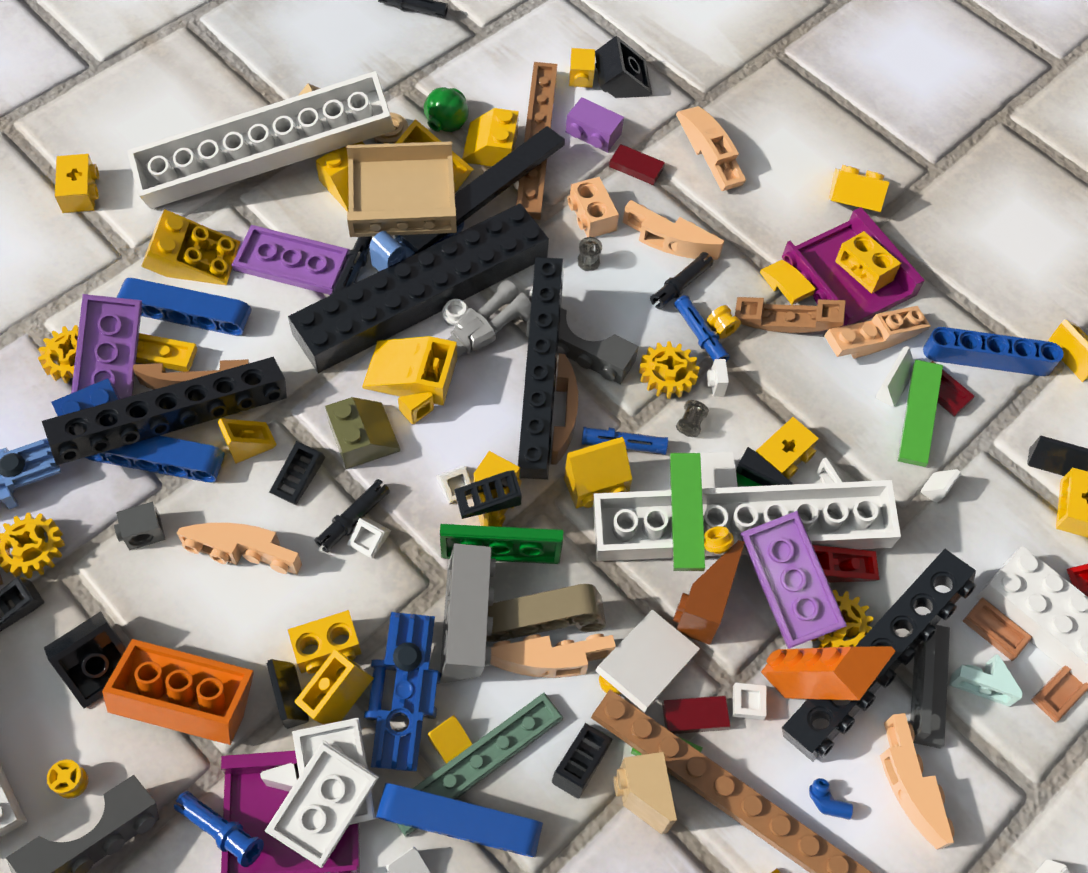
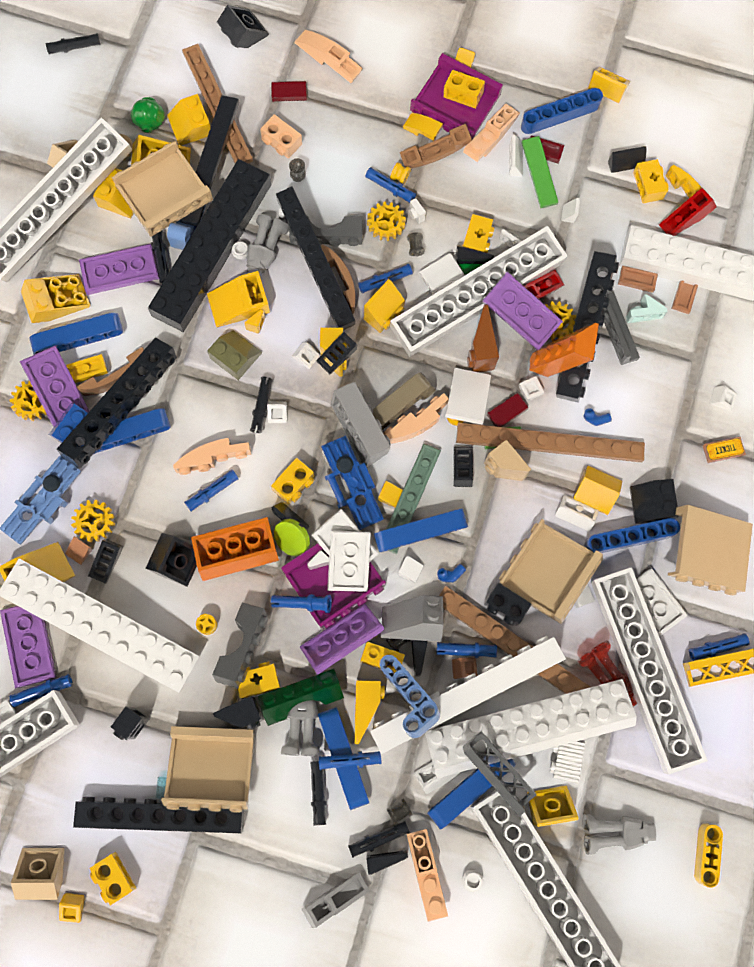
camera: 30 degrees left, 15 degrees up
(139, 526) = (147, 476): dark grey brick -> none
(199, 593) = (204, 495): none -> blue pin
(246, 438) = (171, 394): yellow slope -> none
(267, 720) = (291, 537): none -> lime tile
(288, 469) = (214, 382): black slope -> none
(334, 689) = (316, 502): yellow brick -> none
(506, 543) = (358, 374): green tile -> none
(582, 67) = (214, 38): yellow brick -> none
(594, 124) = (247, 76): medium lavender brick -> none
(674, 286) = (359, 164): black pin -> none
(676, 238) = (344, 131): light nougat slope -> none
(687, 512) = (447, 303): bright green tile -> none
(718, 540) = (473, 311): yellow plate -> none
(858, 189) = (432, 39): yellow slope -> none
(892, 228) = (465, 57): none -> yellow slope
(917, 795) = (639, 390): light nougat slope -> none

